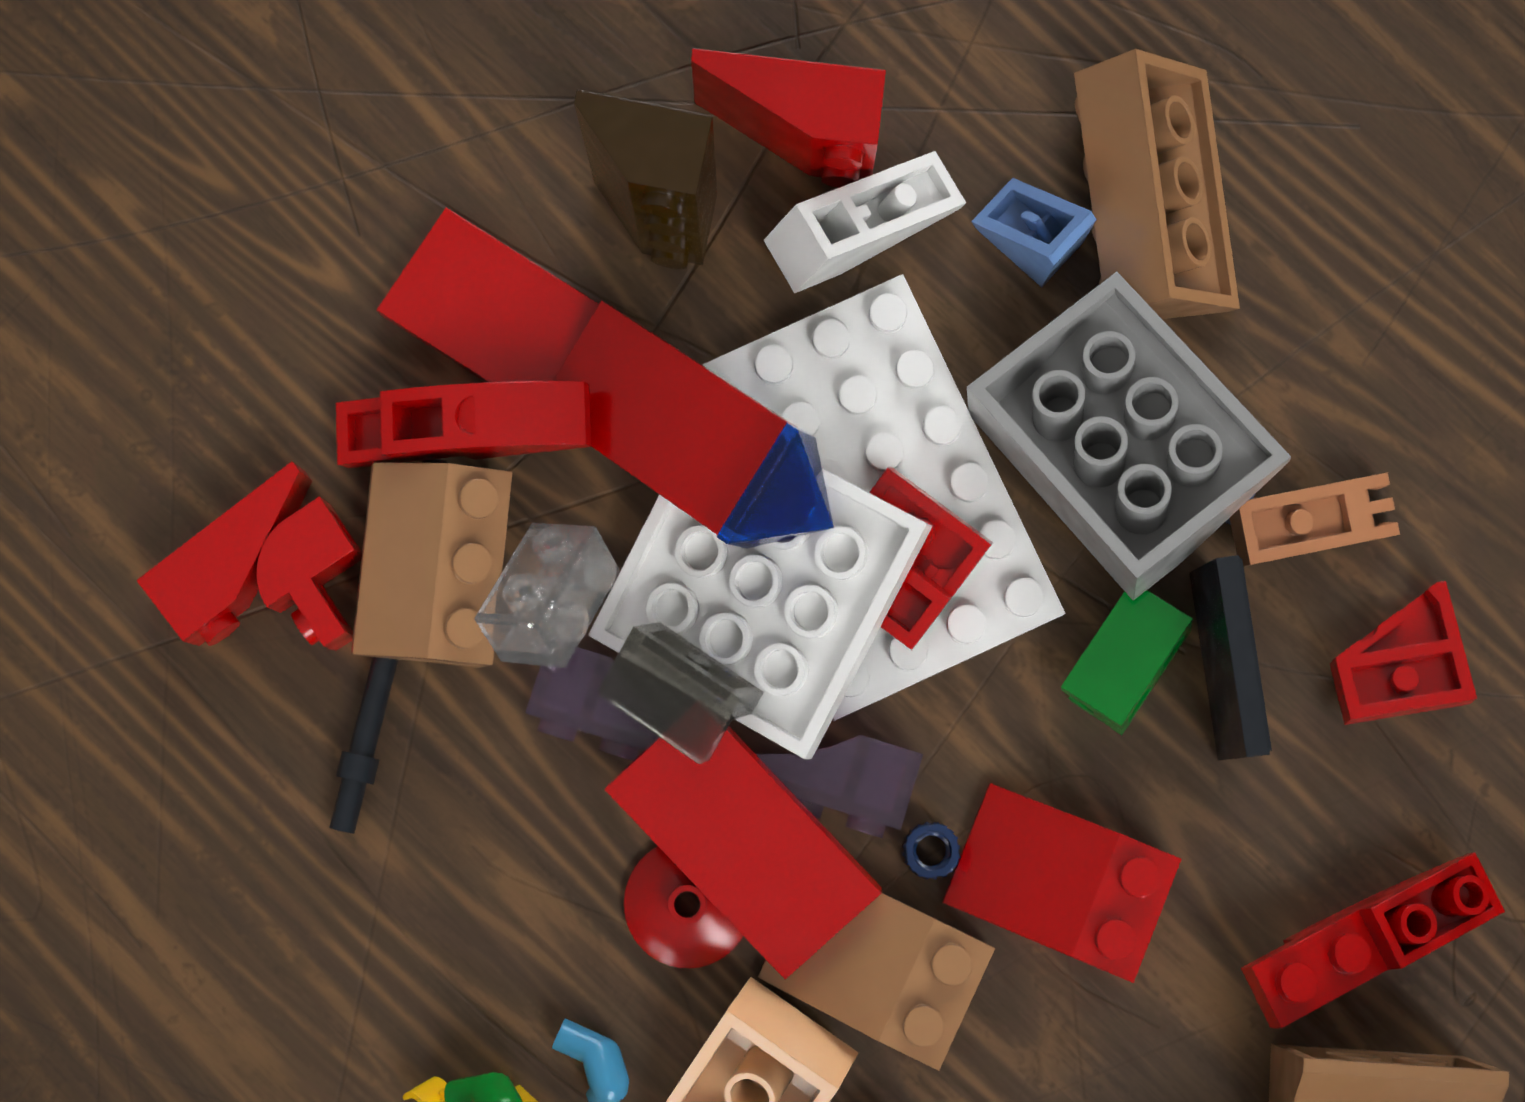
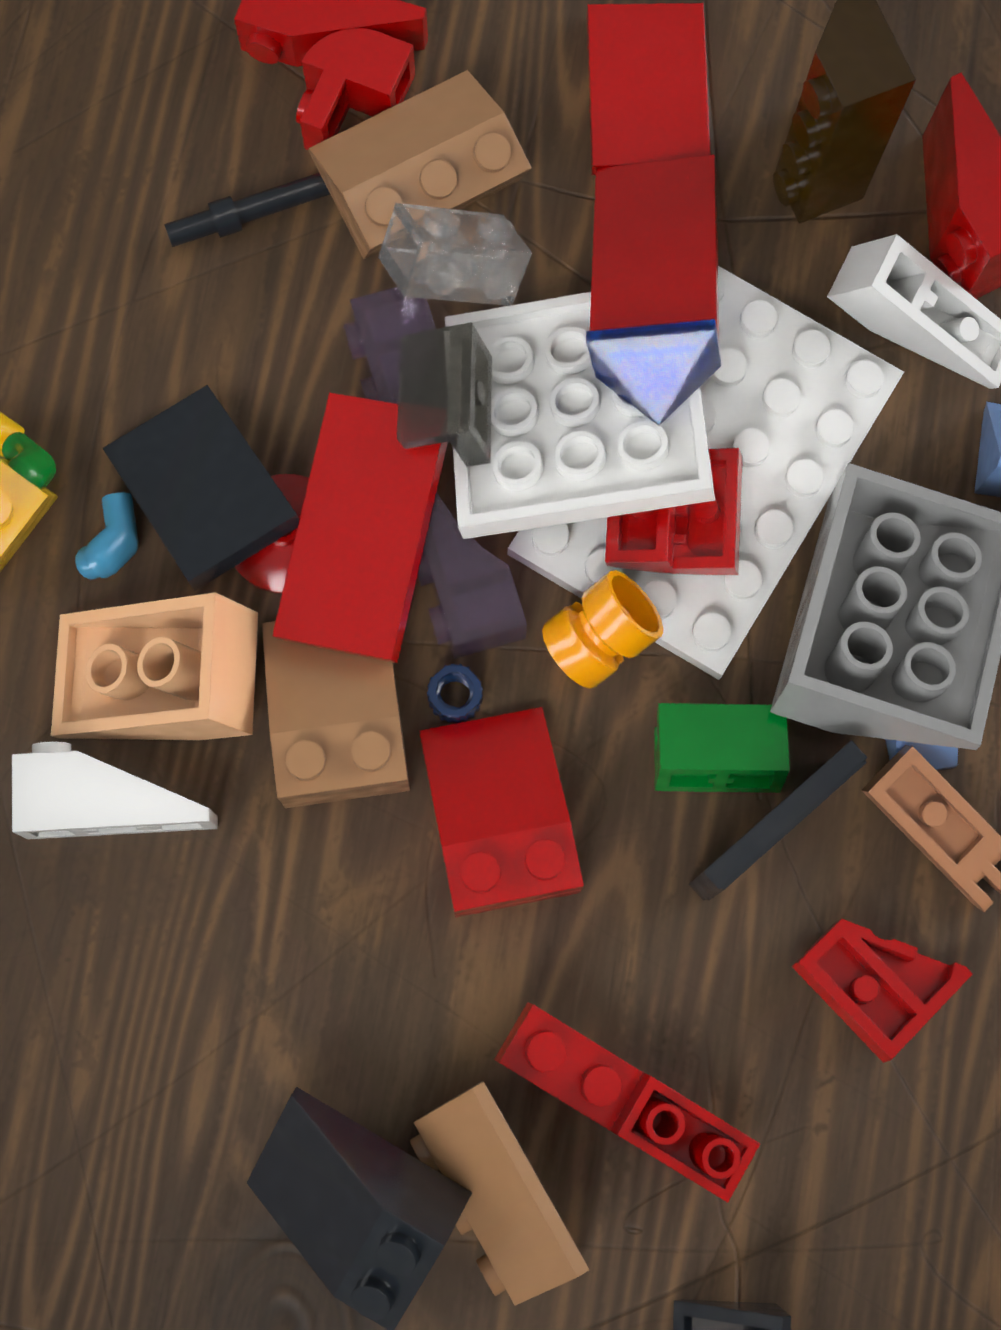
camera: 55 degrees right, 5 degrees down
(463, 421) = (549, 113): red slope -> none
(604, 954) = (202, 487): none -> black tile
(967, 687) = (609, 624): none -> light orange wheel

